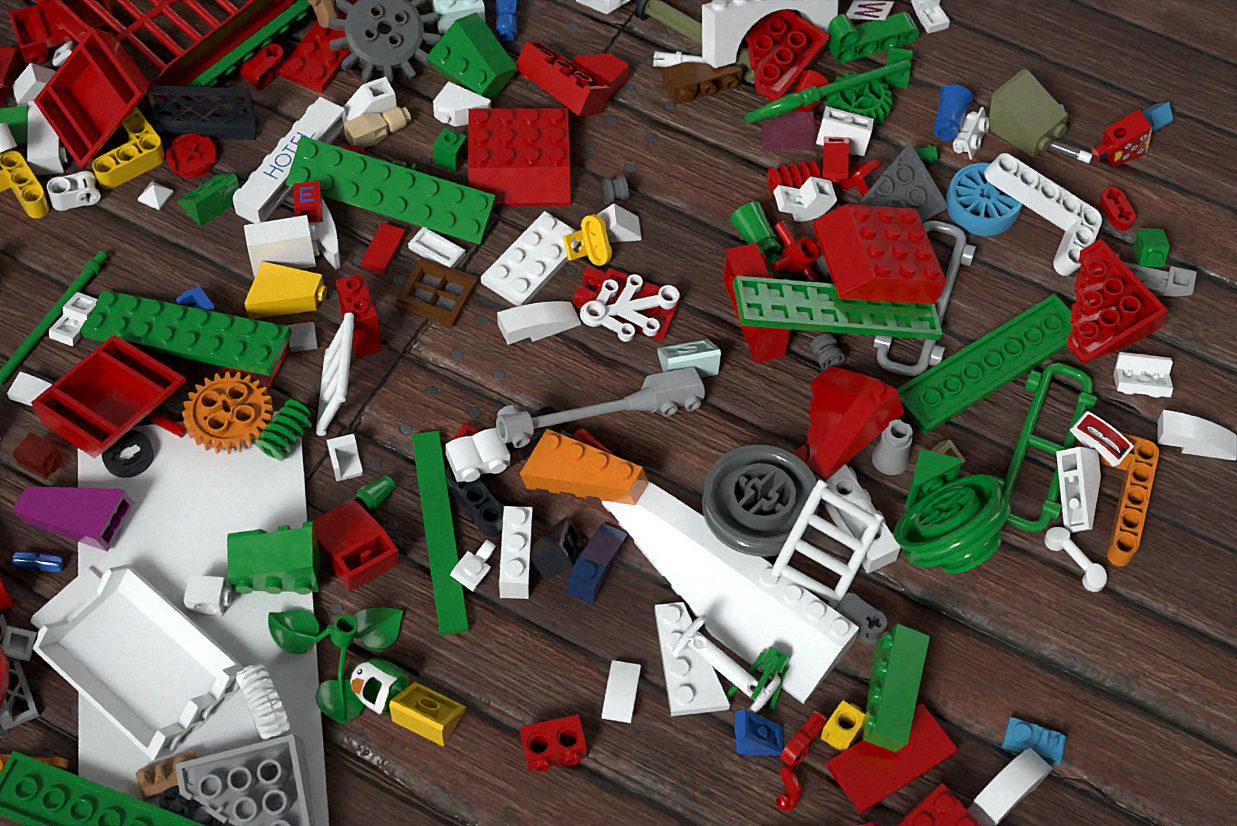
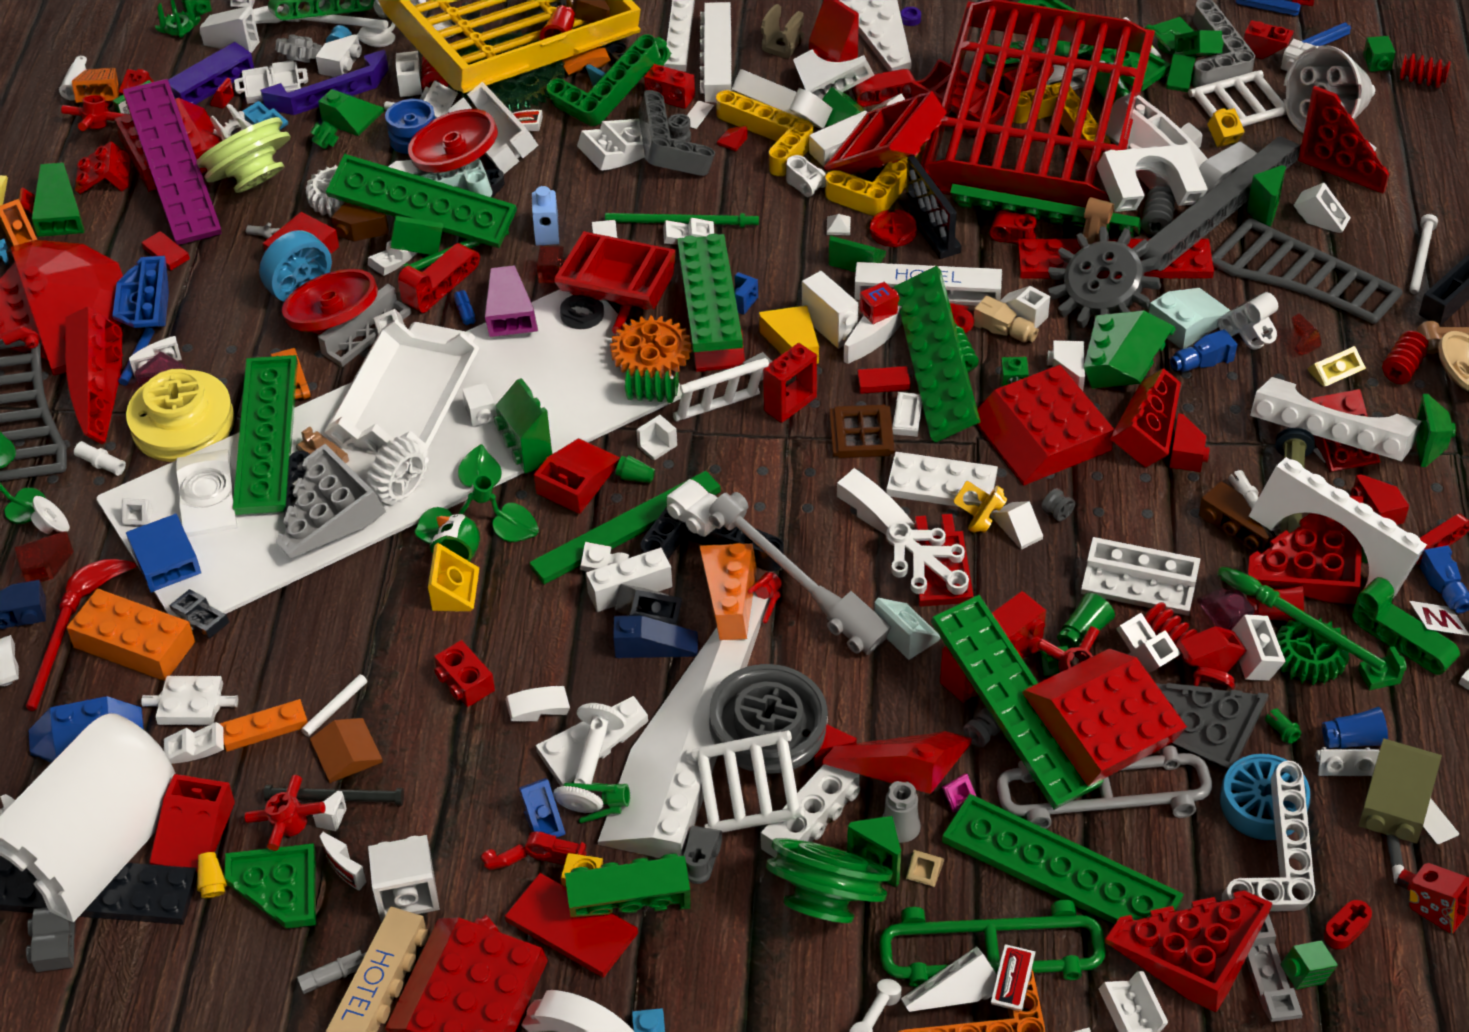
camera: 70 degrees right, 10 degrees down
(728, 170) = (1140, 575): none -> white brick

